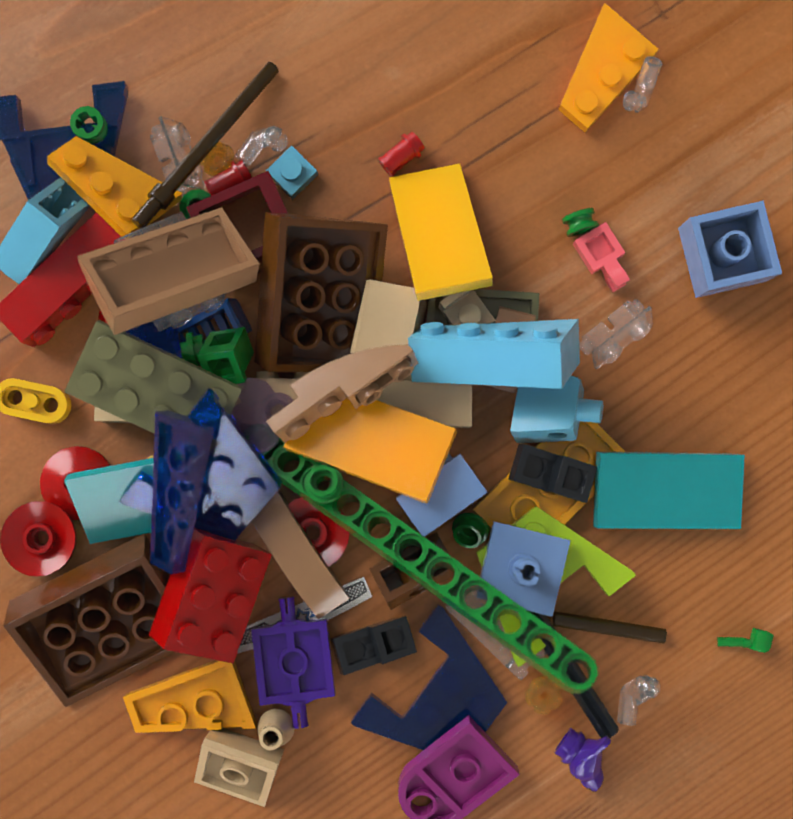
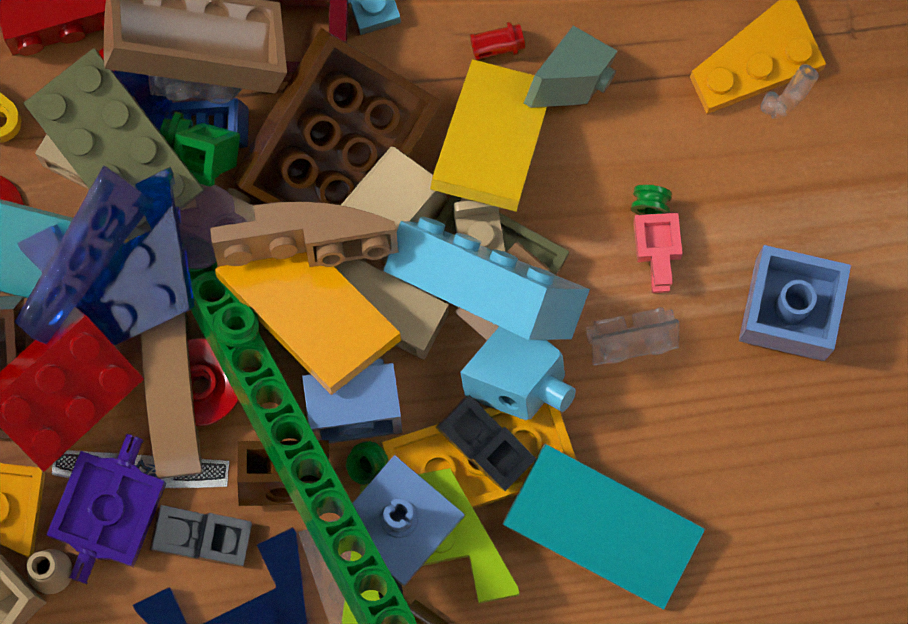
camera: 25 degrees right, 10 degrees down
(474, 149) = (572, 72): none -> sand green slope

